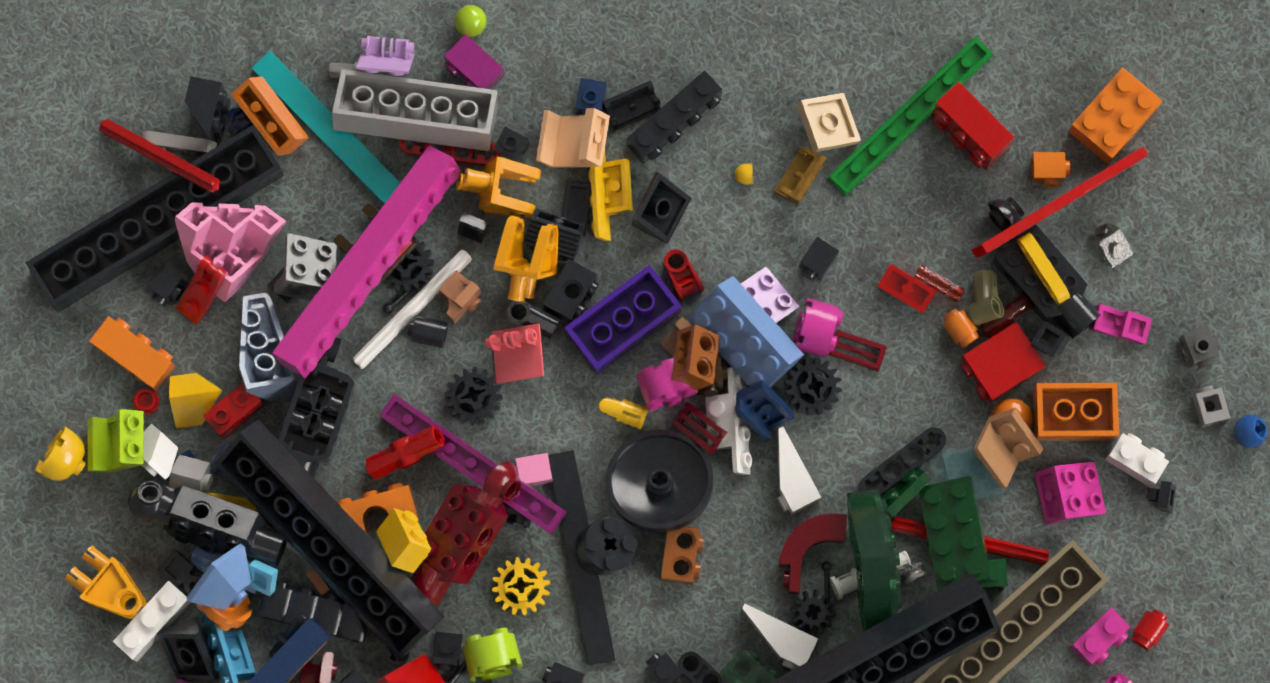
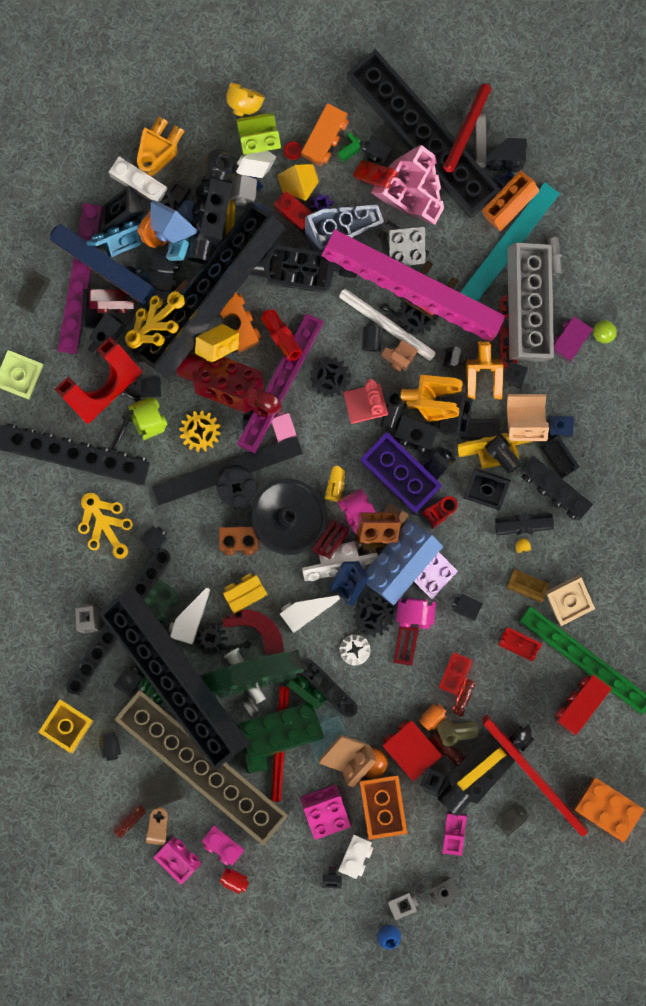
camera: 80 degrees right, 5 degrees up
(160, 325) = (348, 151): none -> green bracket
(228, 378) = (321, 199): none -> dark purple gear
(359, 624) = (137, 336): none -> yellow plant
(395, 63) = (564, 272): lavender hinge -> none
(612, 179) = (500, 449): none -> black piece
(614, 266) = (439, 462): none -> black bracket
(716, 167) = (524, 524): none -> black piece
(756, 557) = (244, 593): none -> yellow brick
(847, 430) = (351, 658): none -> white gear
(877, 198) = (519, 644): none -> red hinge
(1049, 168) = (561, 766): orange brick -> none

